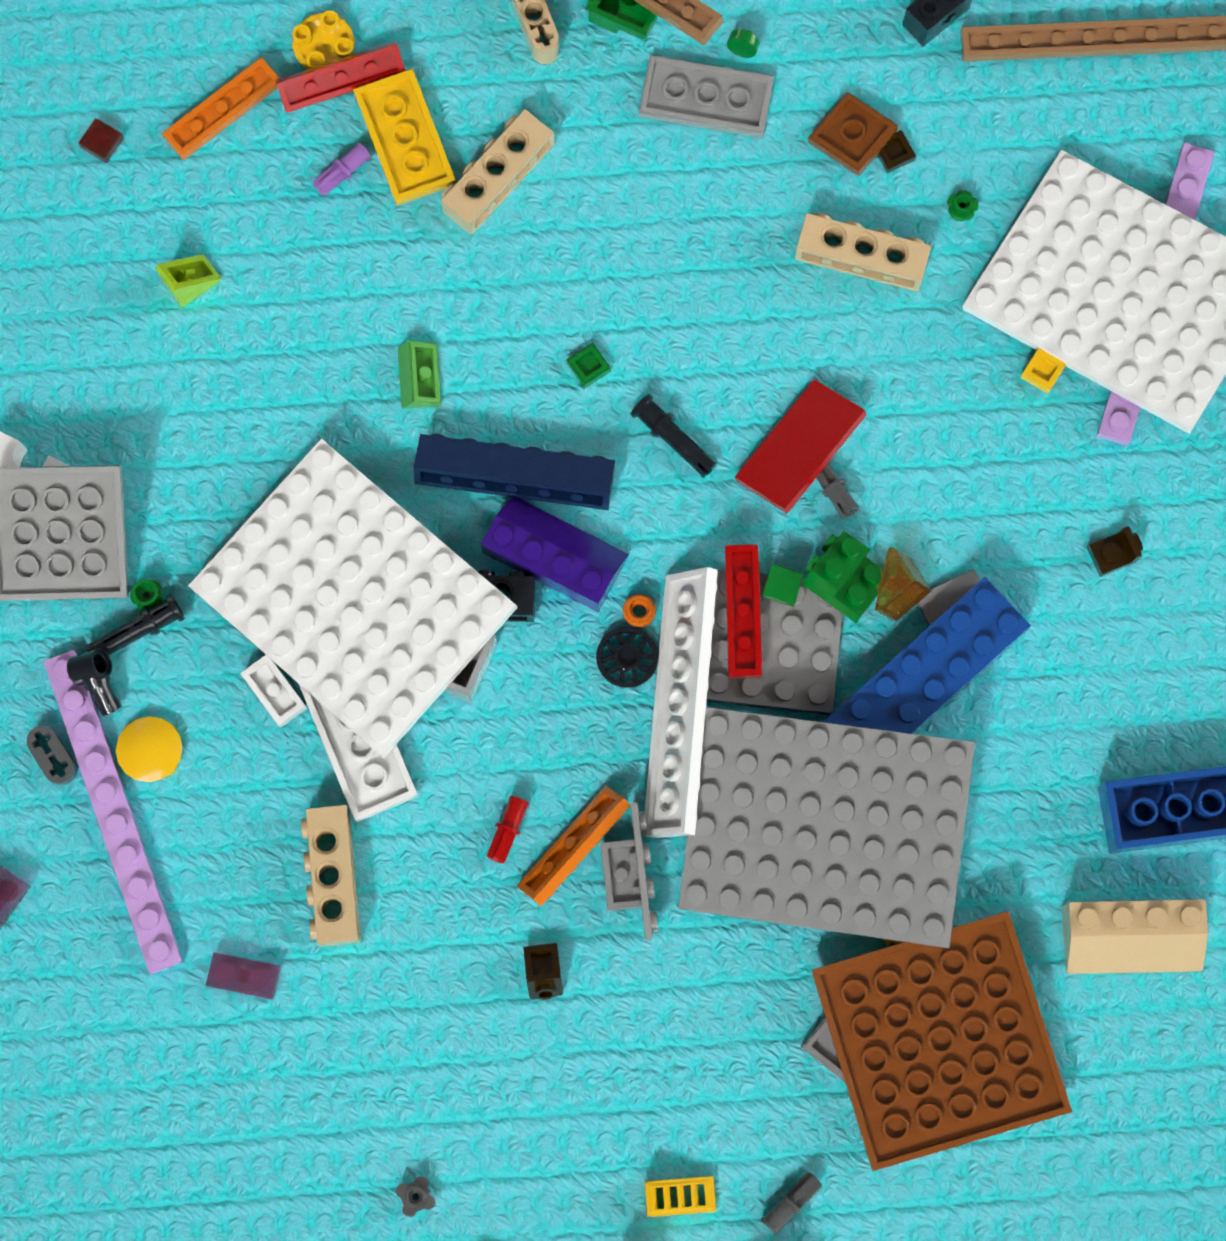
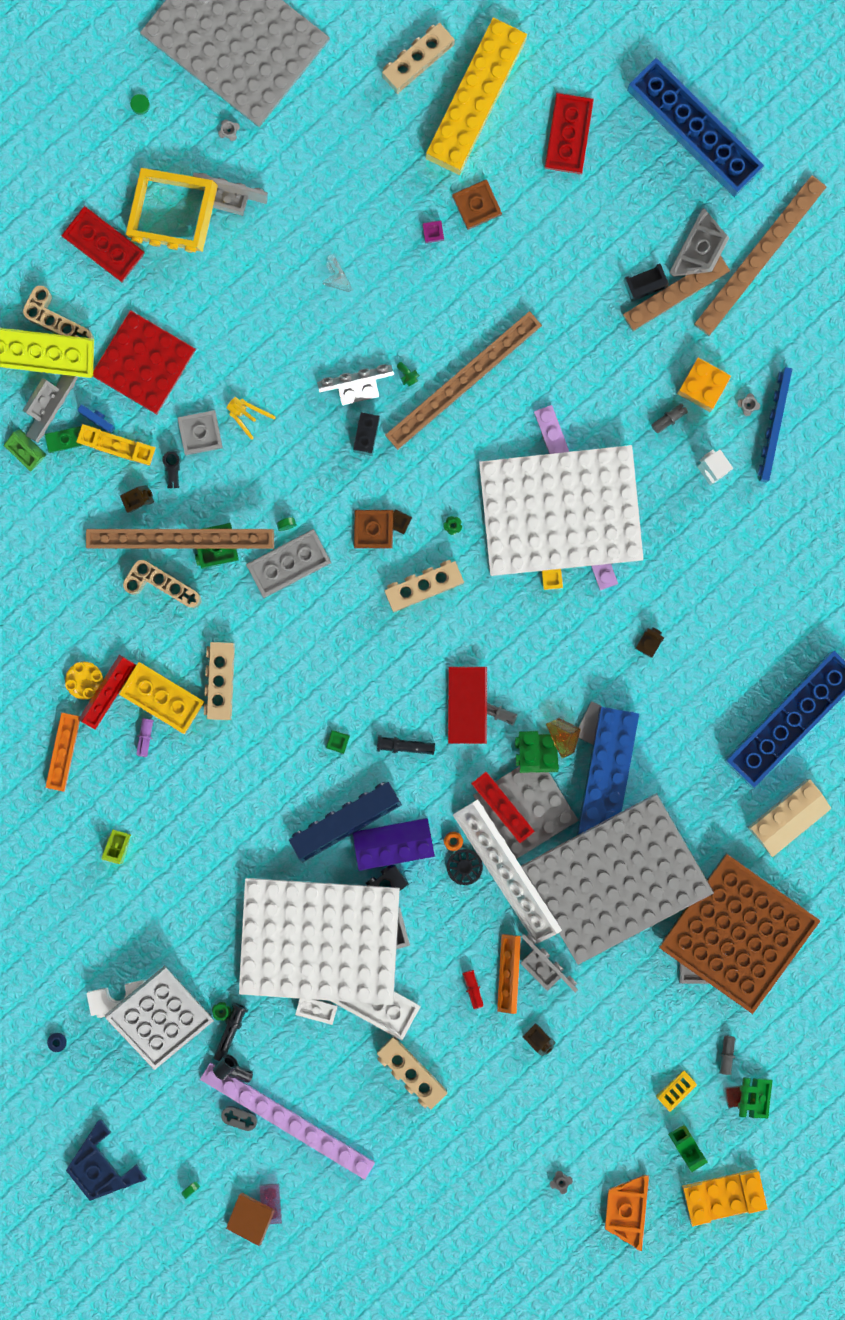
camera: 40 degrees left, 10 degrees up
(101, 140) = (17, 812): clear red plate -> none
(149, 749) = (281, 1080): yellow dish -> none
(243, 976) = (407, 1147): clear pink plate -> none
(419, 375) = (262, 808): bright green slope -> none
(782, 585) = (511, 780): green tile -> none

